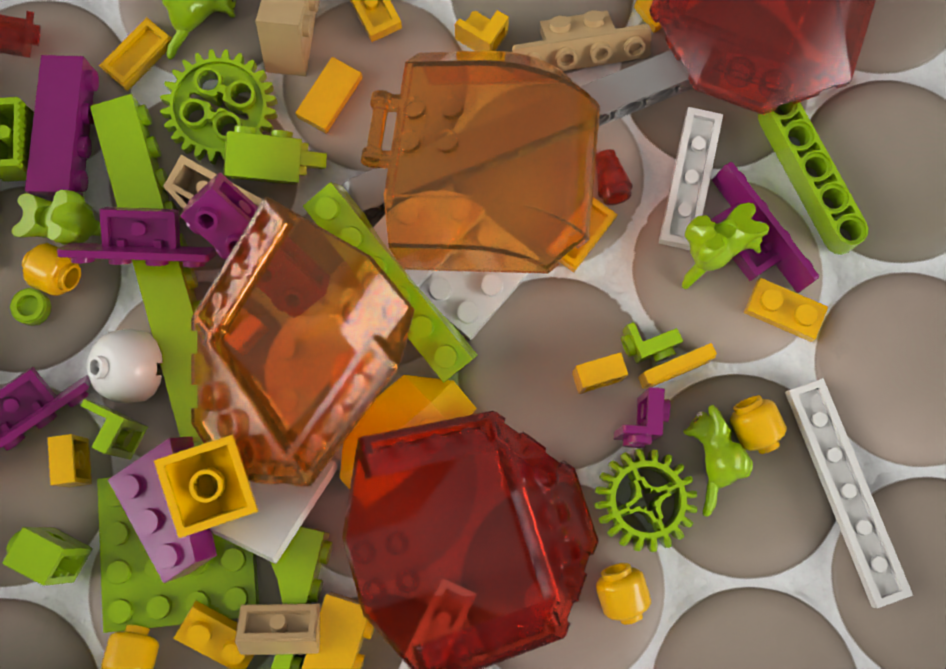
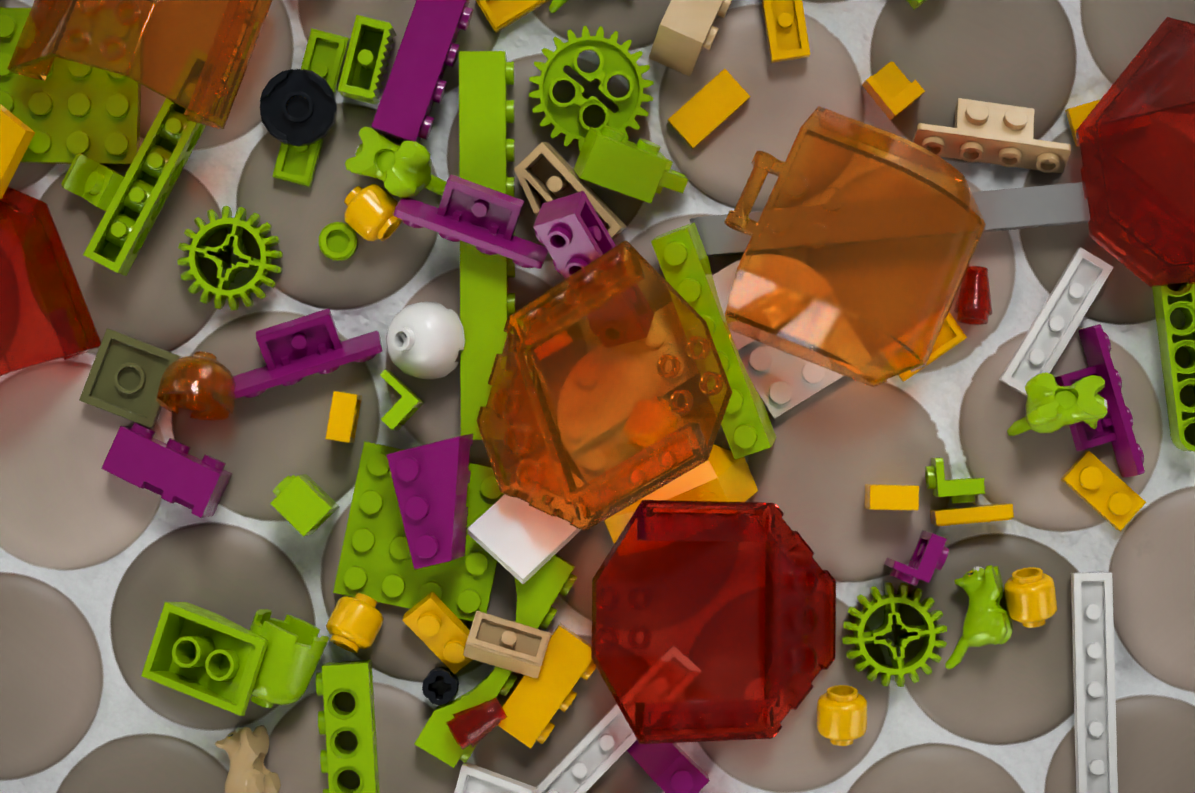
camera: 20 degrees right, 10 degrees up
(206, 485) = (484, 492): yellow slope -> none

